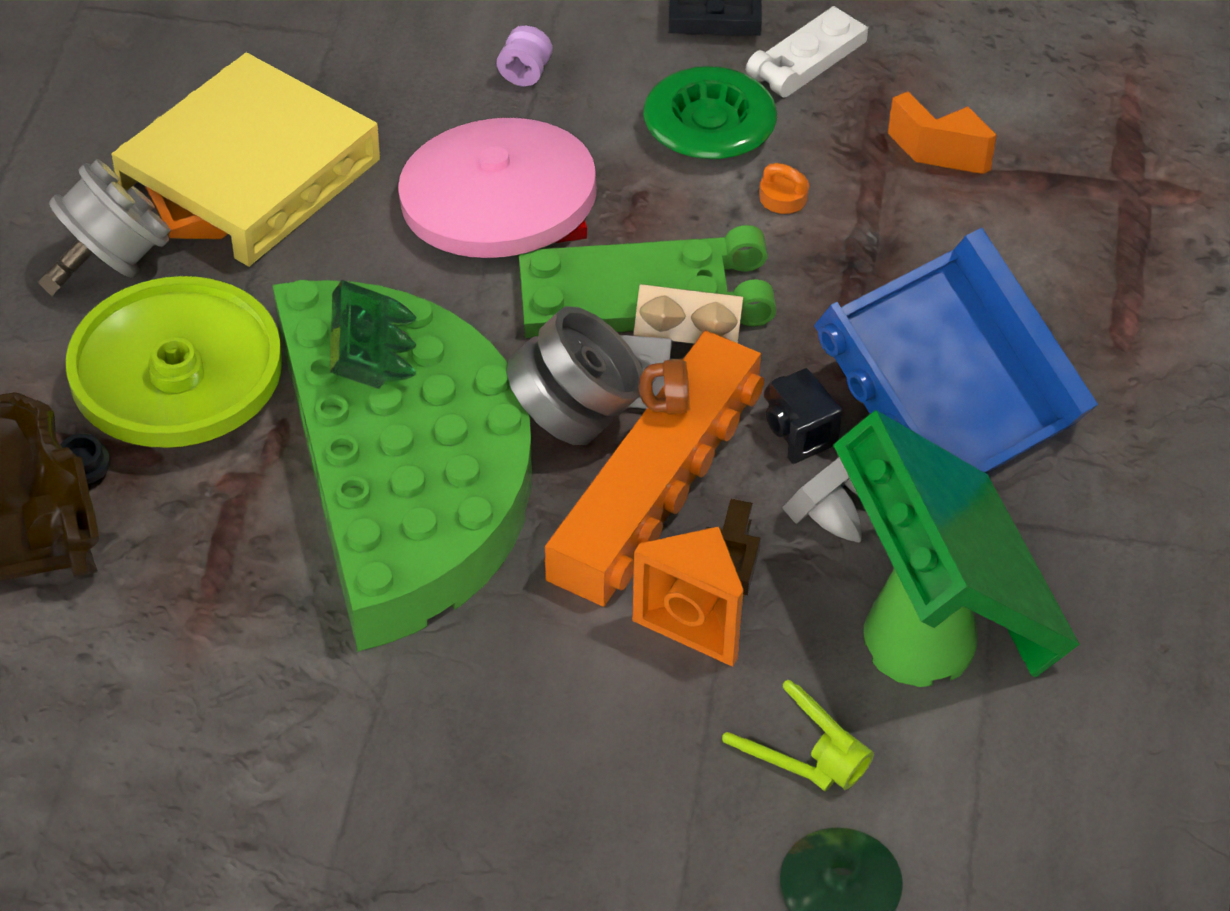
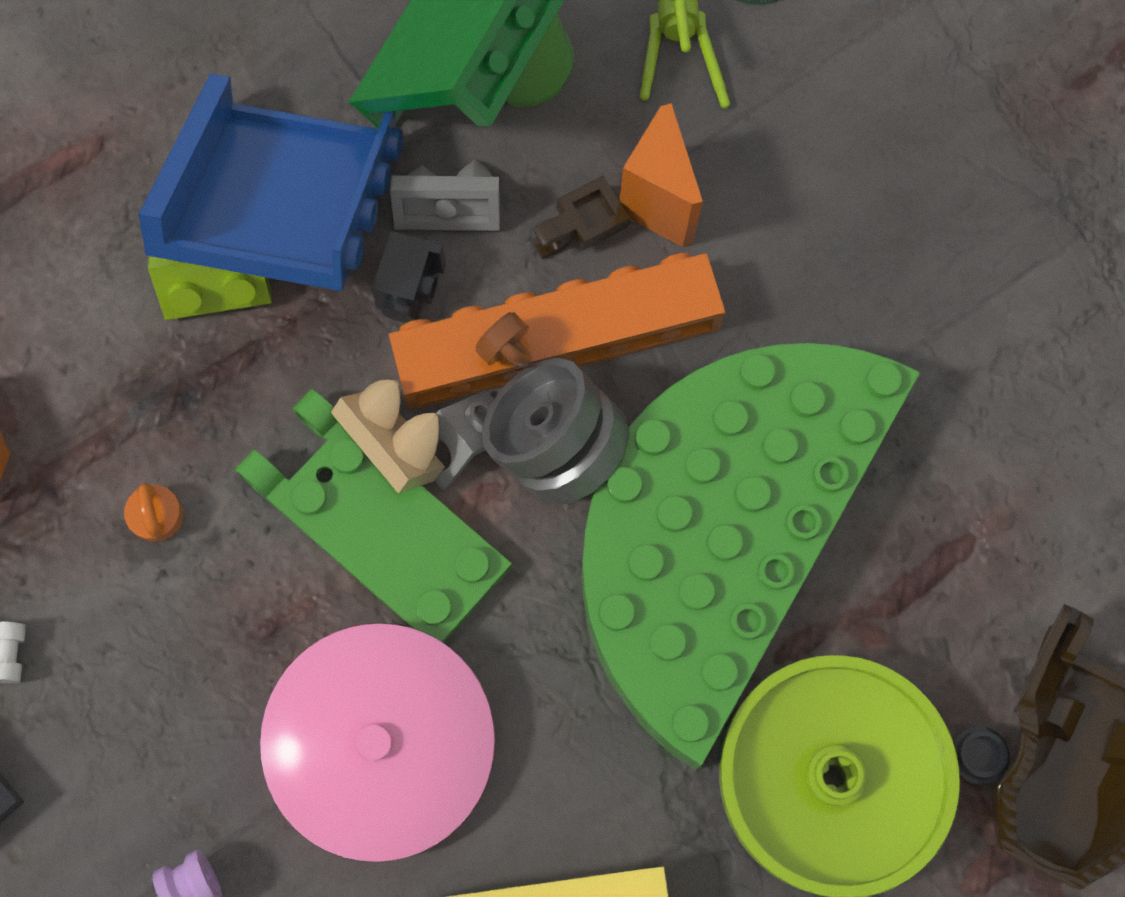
camera: 135 degrees left, 25 degrees up
(368, 336) = (699, 596): clear green plate -> none
(710, 112) = (113, 654): green wheel -> none

